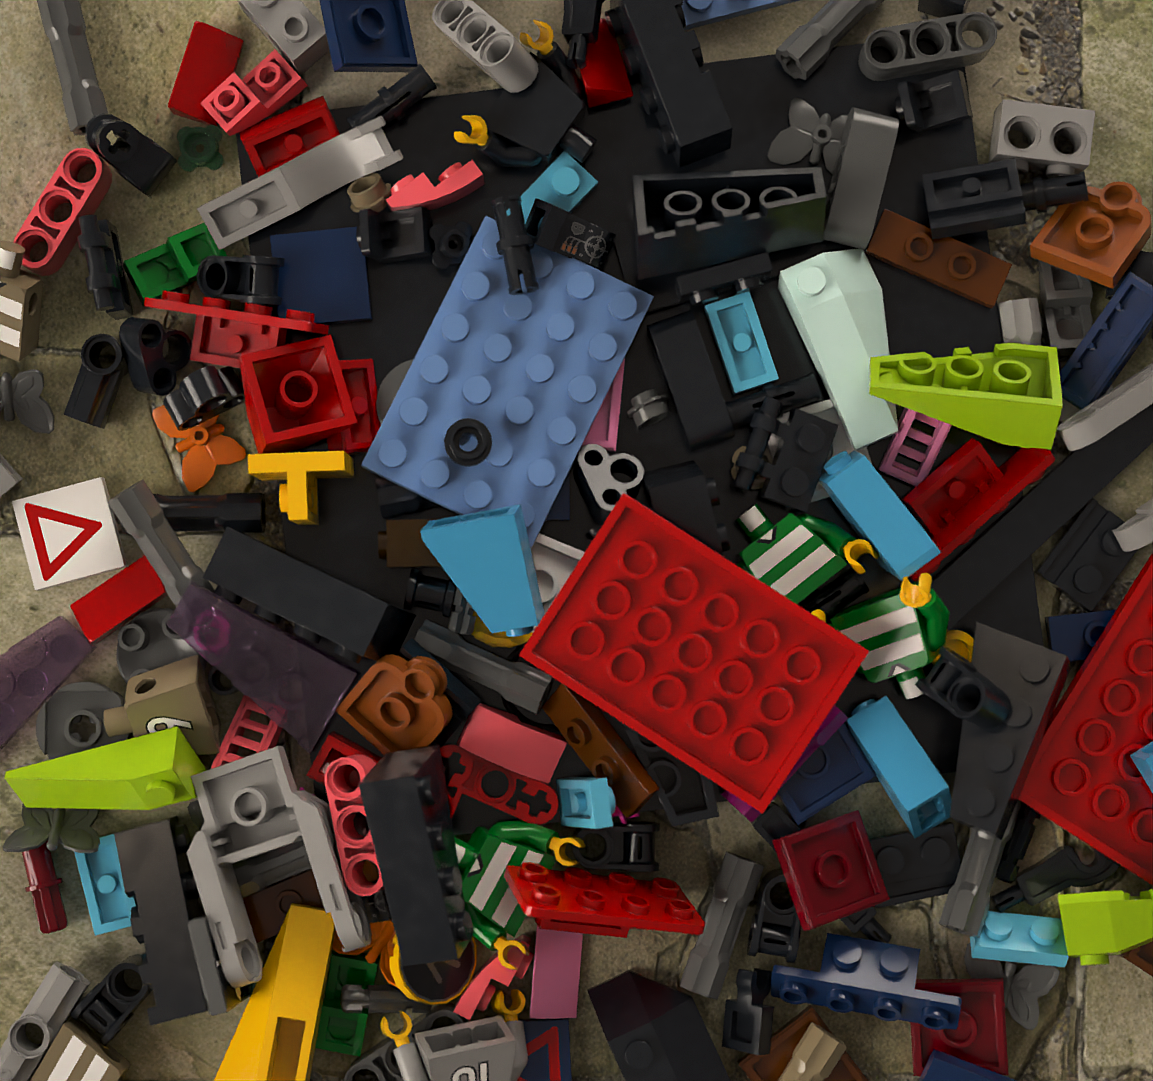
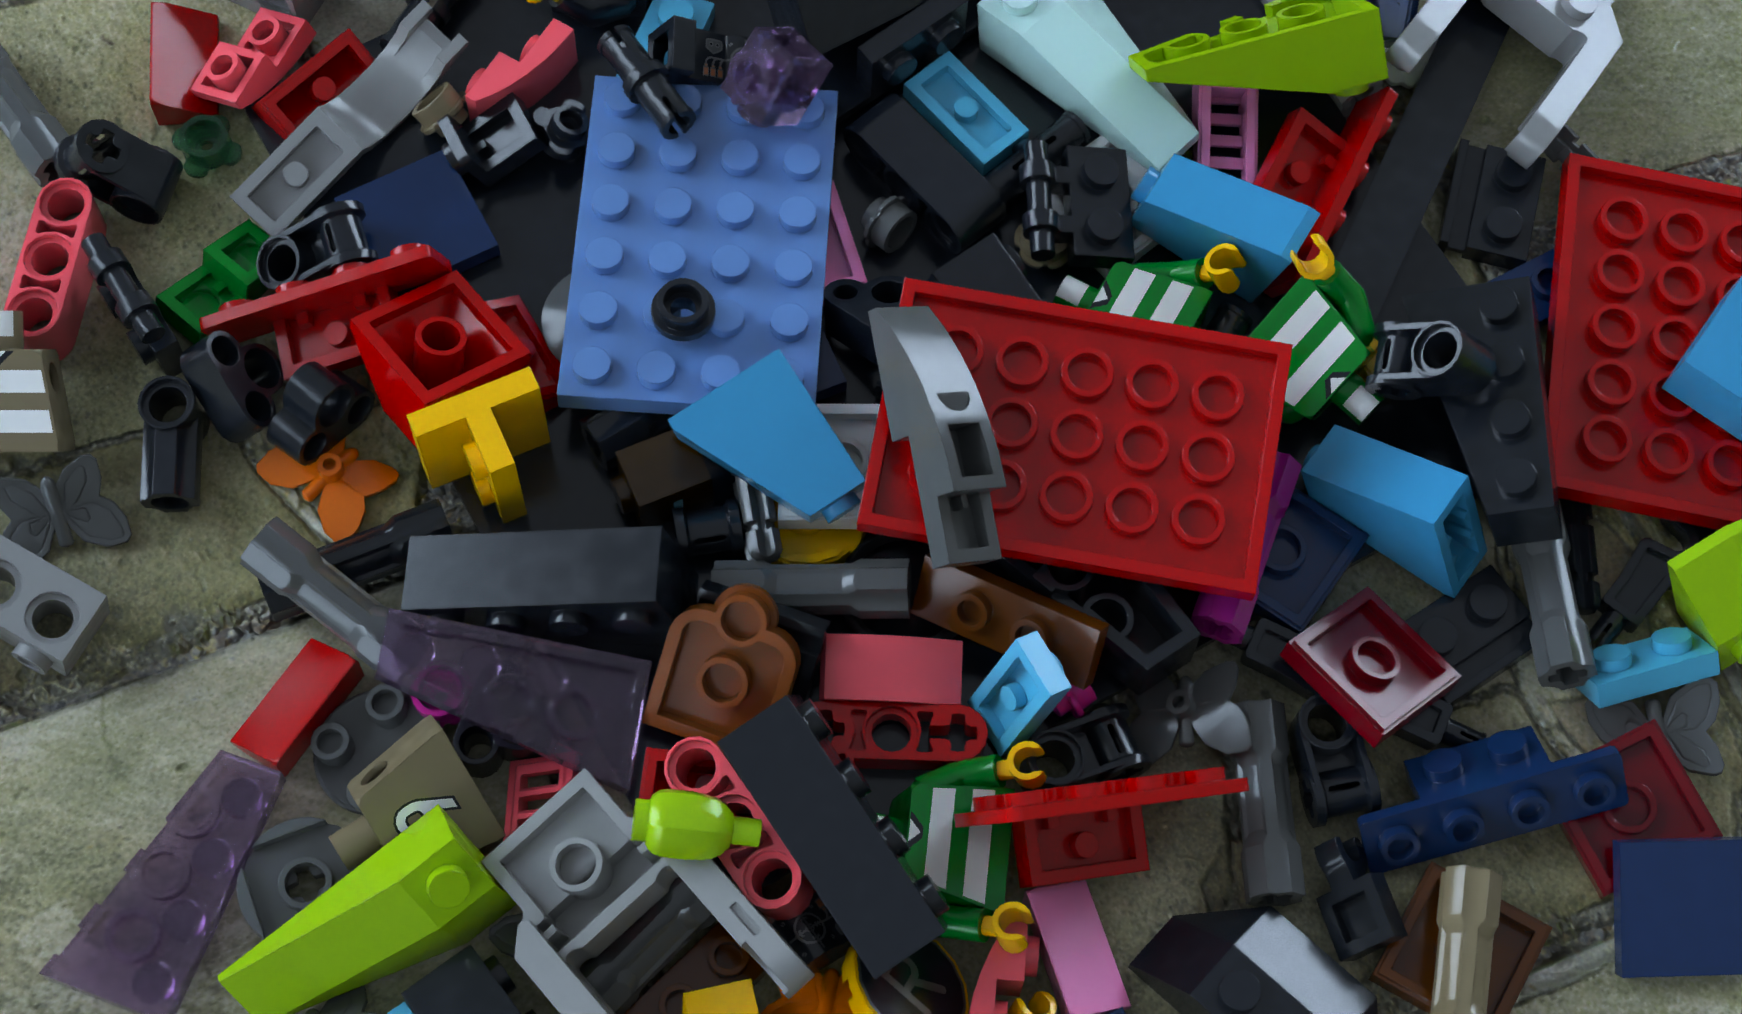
camera: 25 degrees left, 20 degrees down
(69, 533) = (198, 651): white tile -> none
(323, 825) = (690, 825): none -> lime plant
(598, 620) = (950, 436): none -> dark grey slope
(603, 286) = (775, 77): none -> clear purple brick
(703, 843) = (1199, 705): none -> dark grey piece

